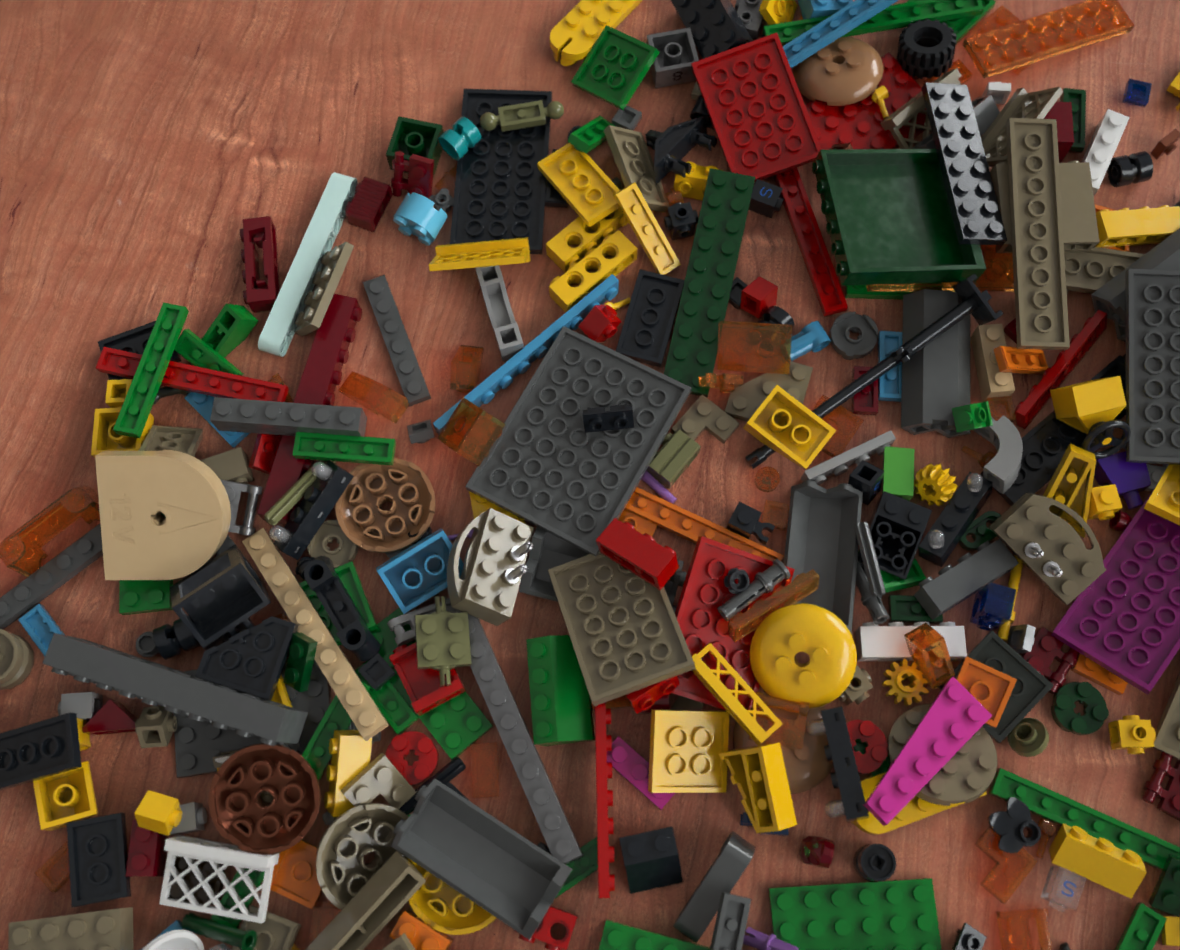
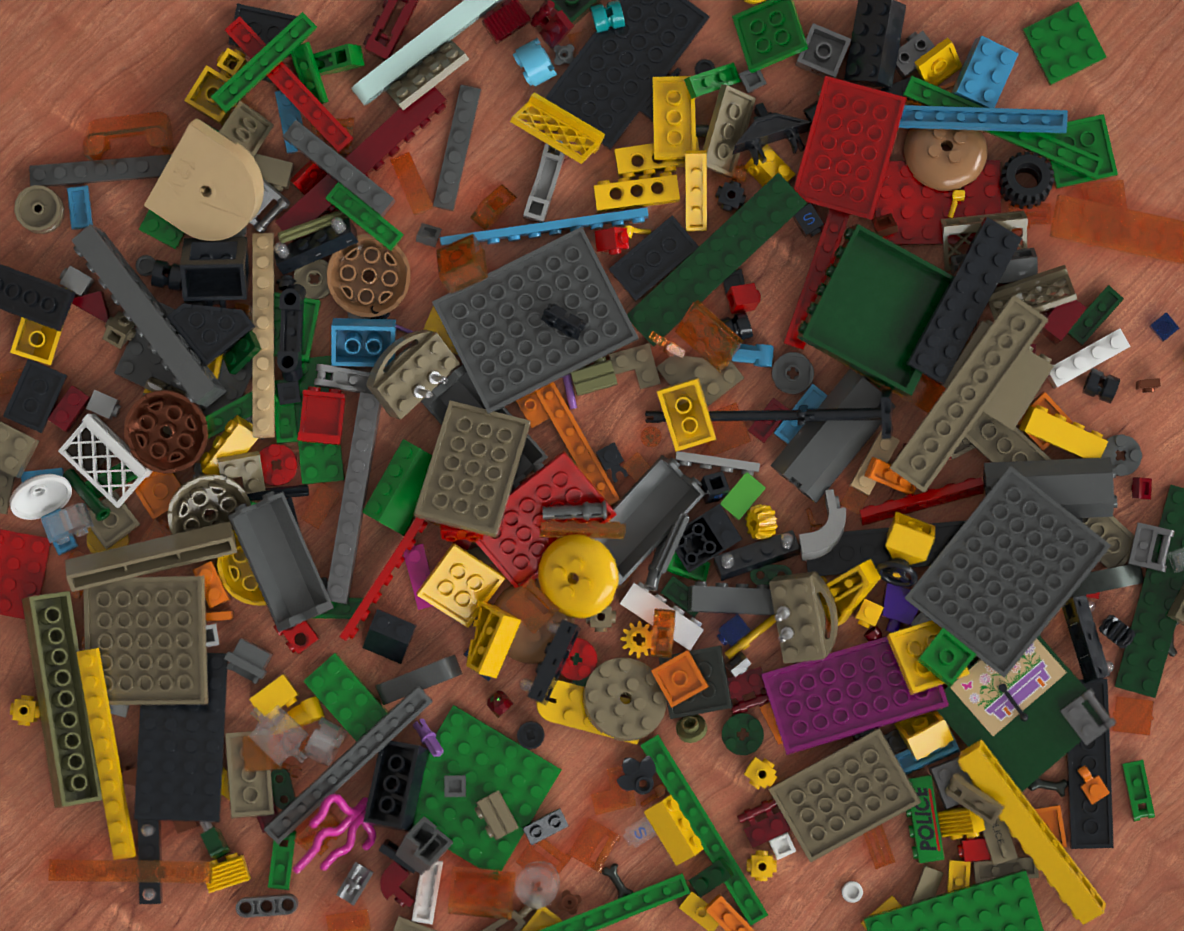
camera: 30 degrees right, 15 degrees up
(158, 813) = (92, 394): yellow brick -> none
(442, 640) = (345, 404): olive plate -> none
(521, 115) = (669, 26): olive plate -> none
(638, 553) = (515, 433): red brick -> none
(730, 702) = (505, 570): yellow fence -> none
(743, 580) = (567, 503): black plate -> none
(938, 737) = (628, 686): dark pink wing -> none
(972, 416) = (820, 493): green brick -> none
(999, 91) = (1055, 252): white plate -> none

